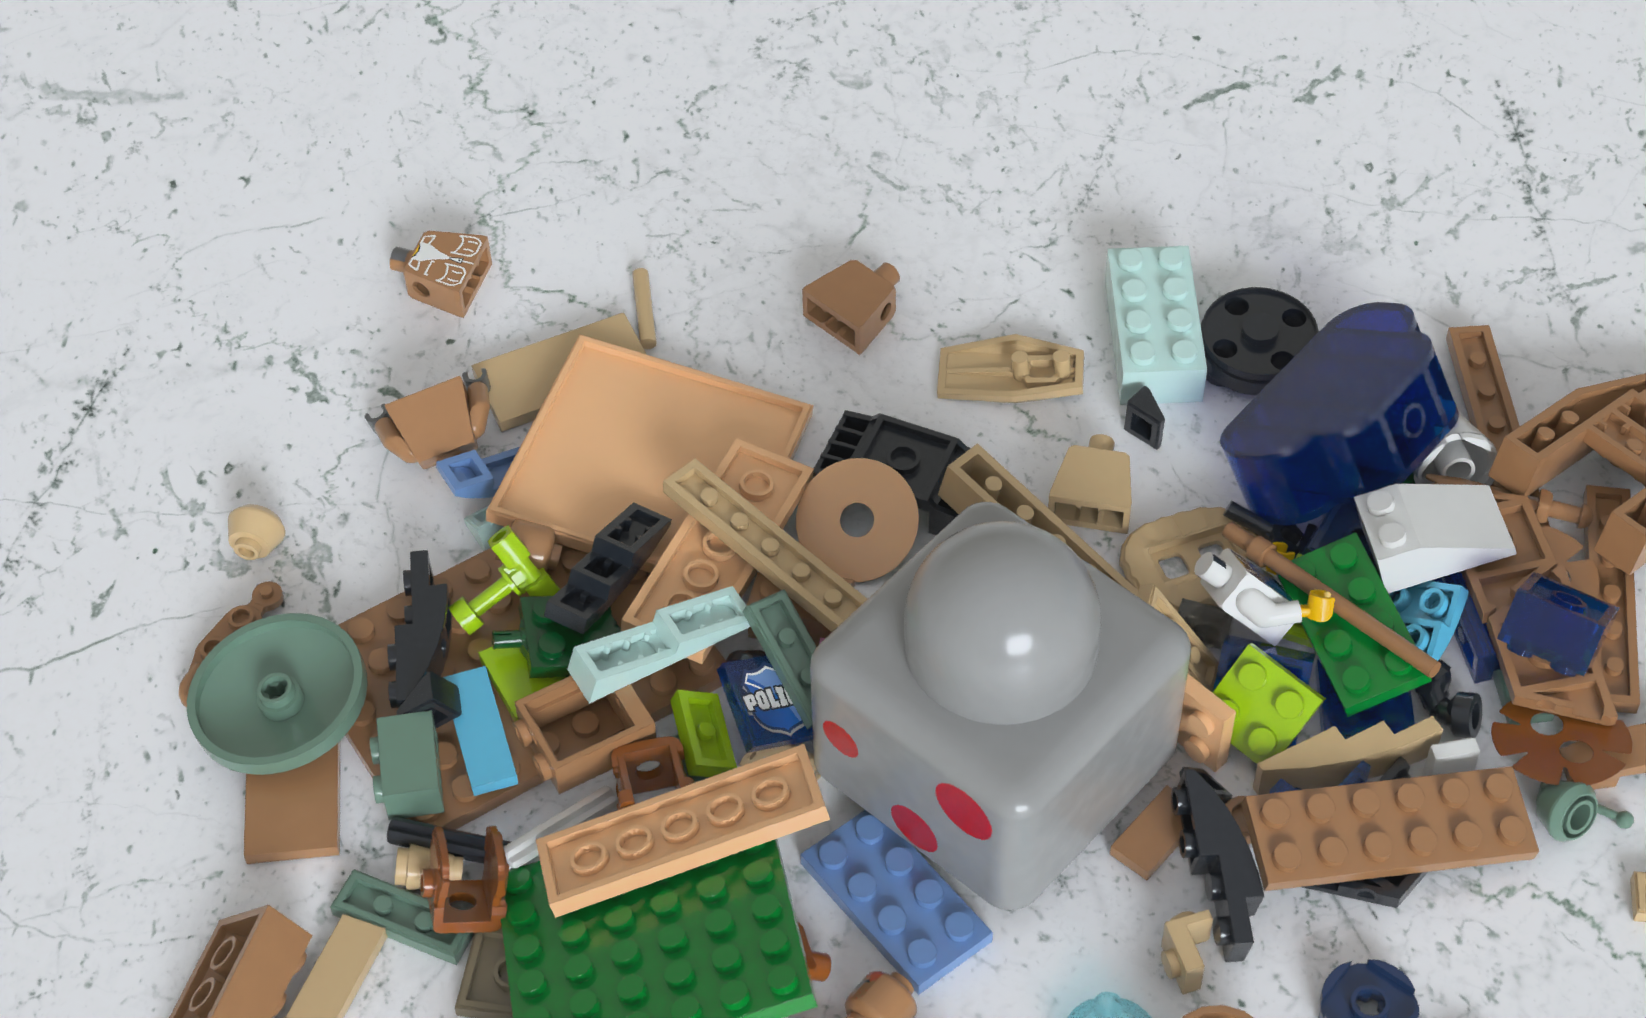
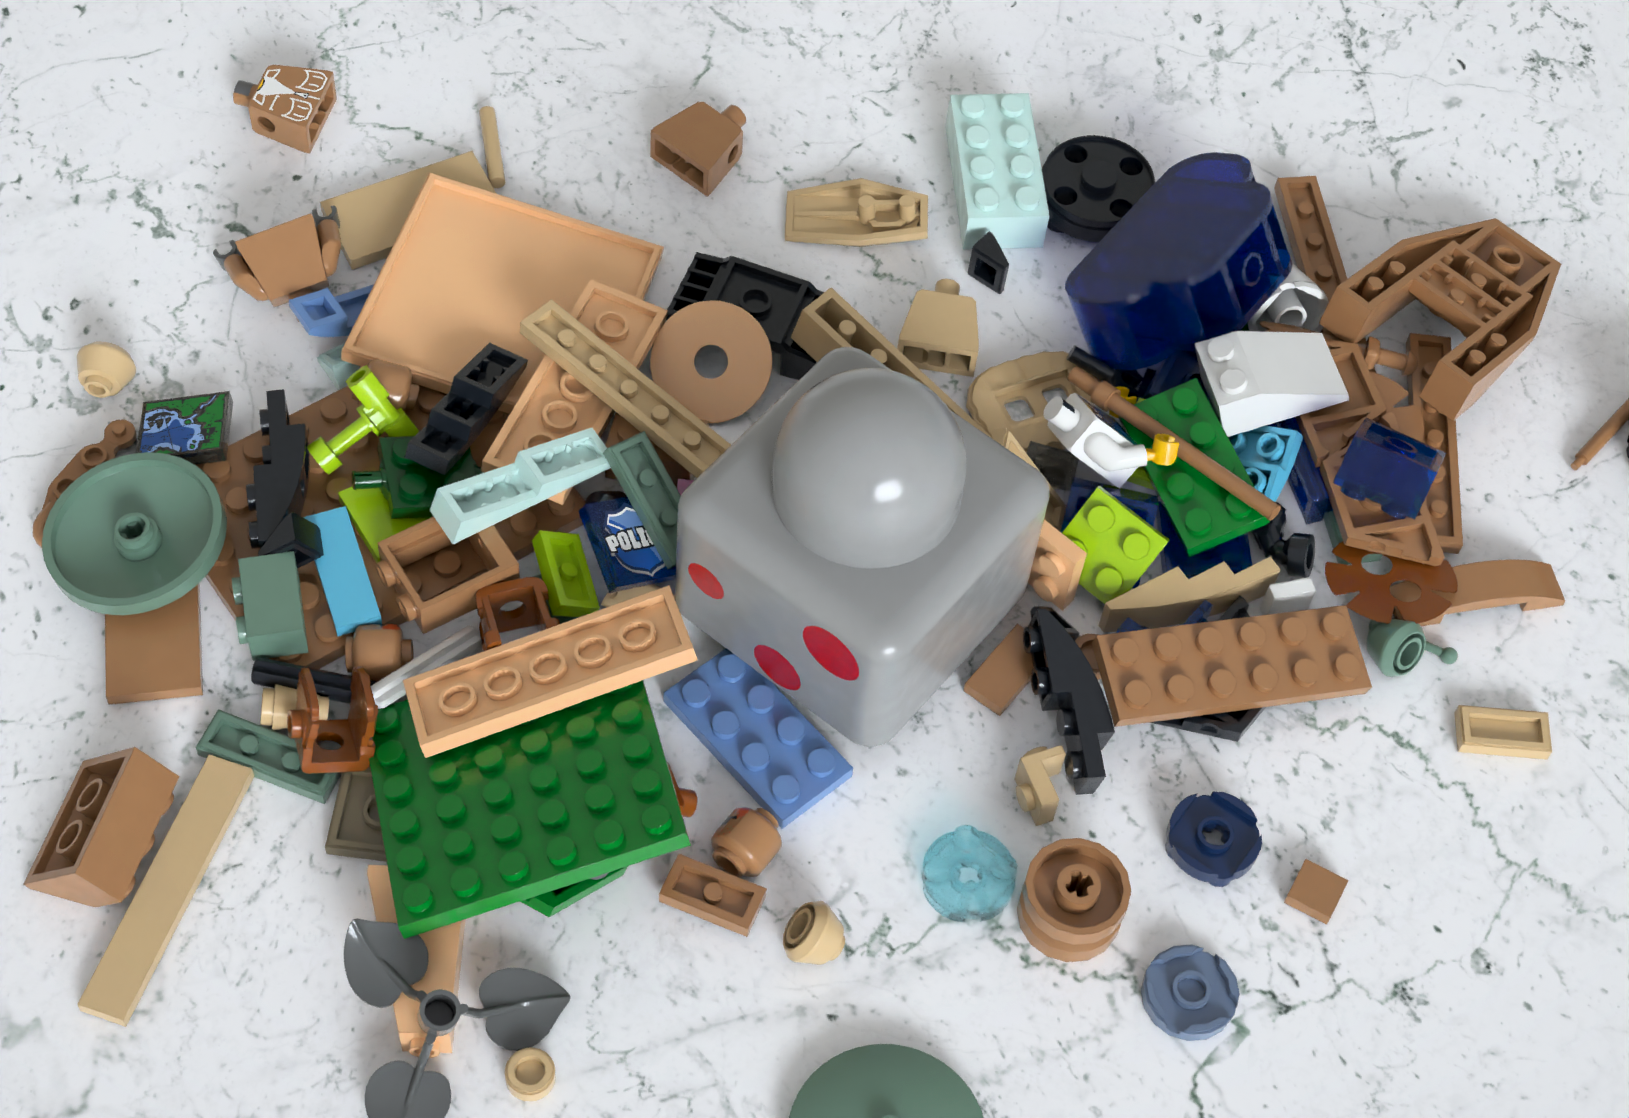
camera: 10 degrees left, 5 degrees up
(333, 588) = (187, 427): none -> tile
(513, 809) = (378, 649): none -> medium nougat head

